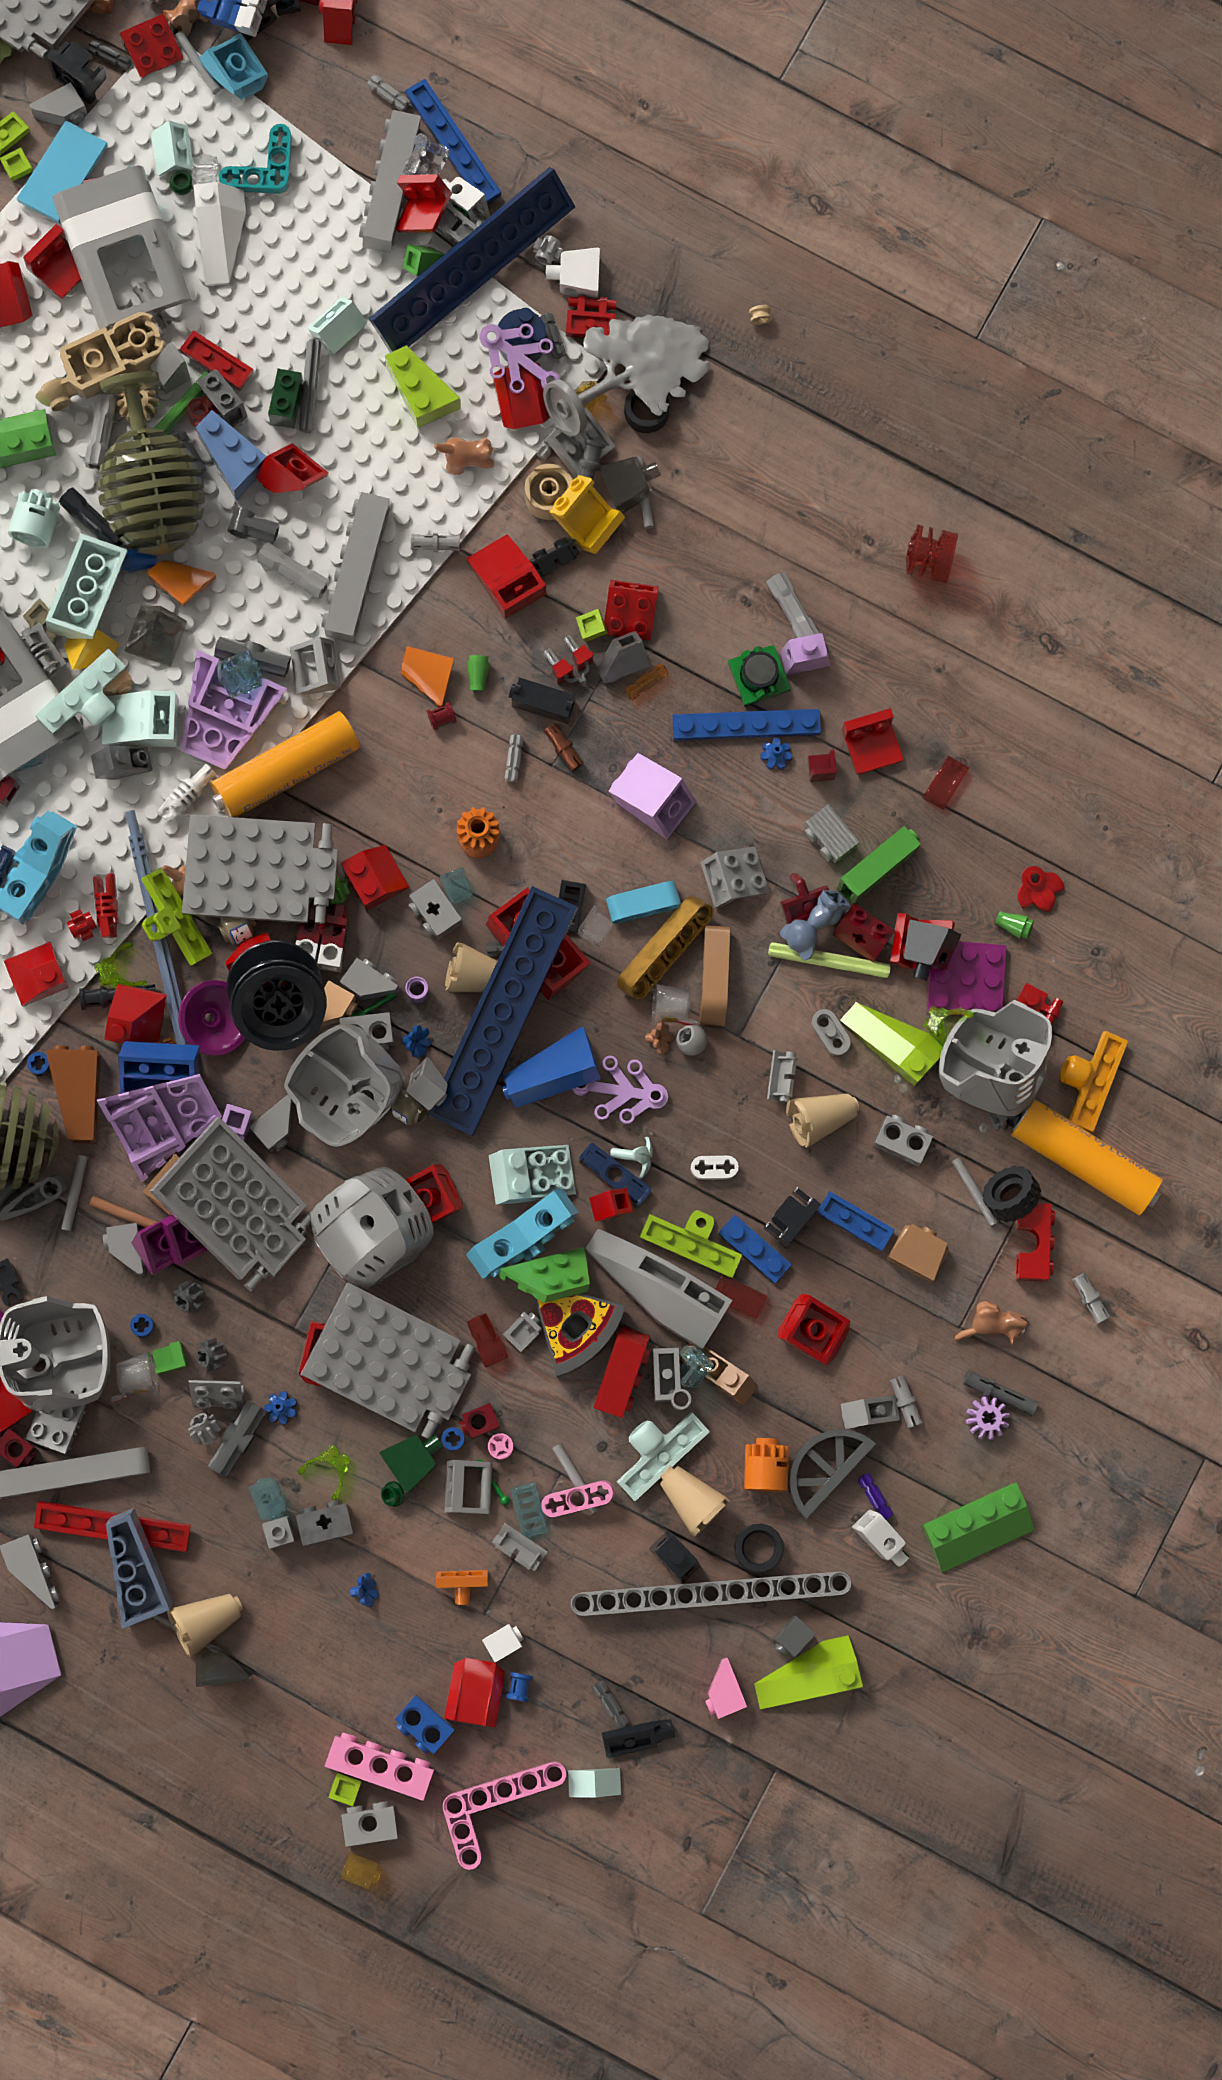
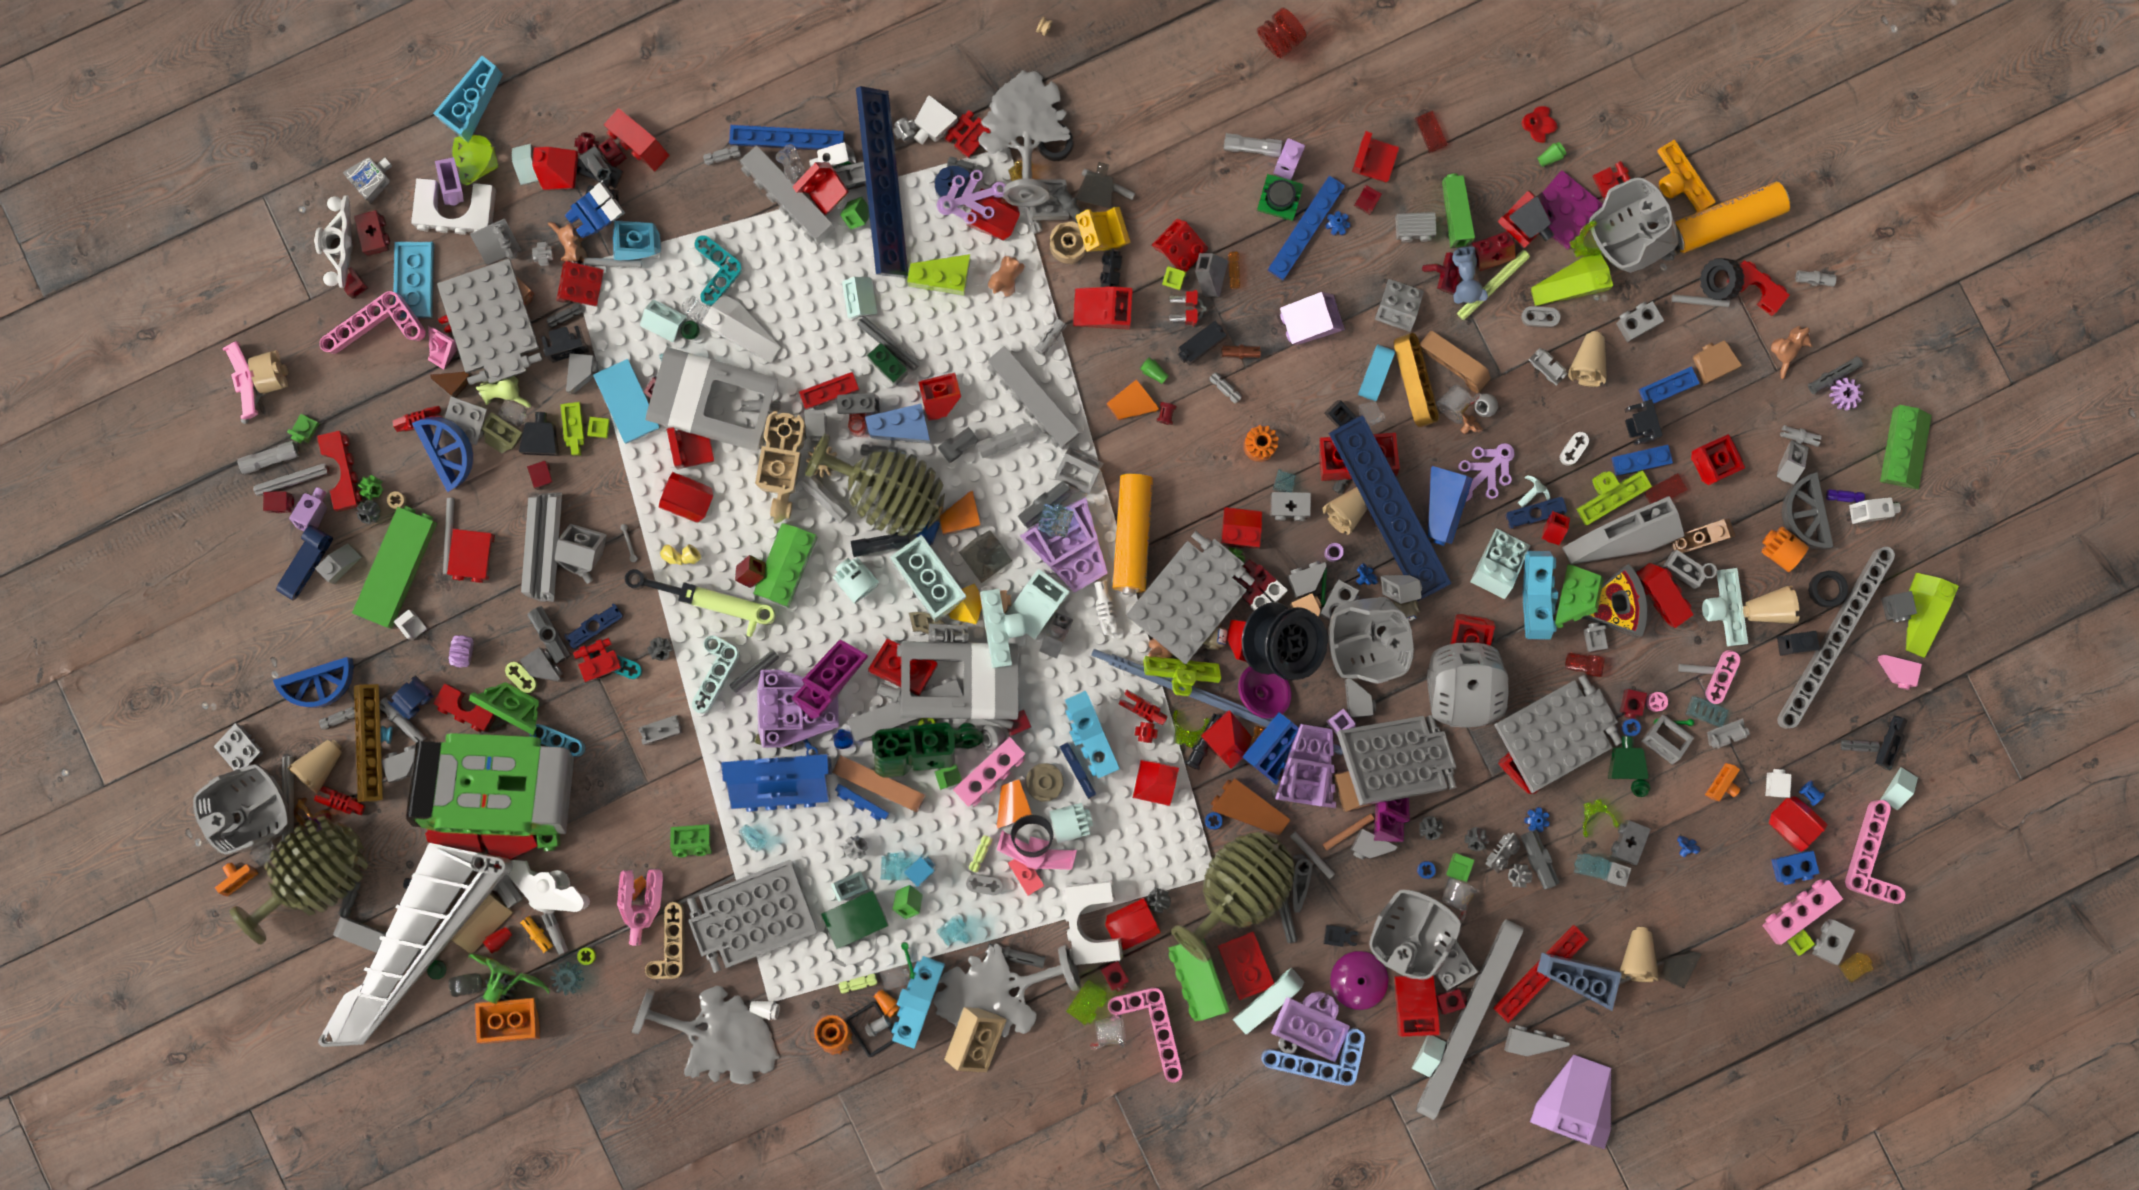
camera: 50 degrees left, 5 degrees up
(179, 410) = (844, 435): bright green axle -> none
(695, 1366) = (1693, 548): clear light blue panel -> none

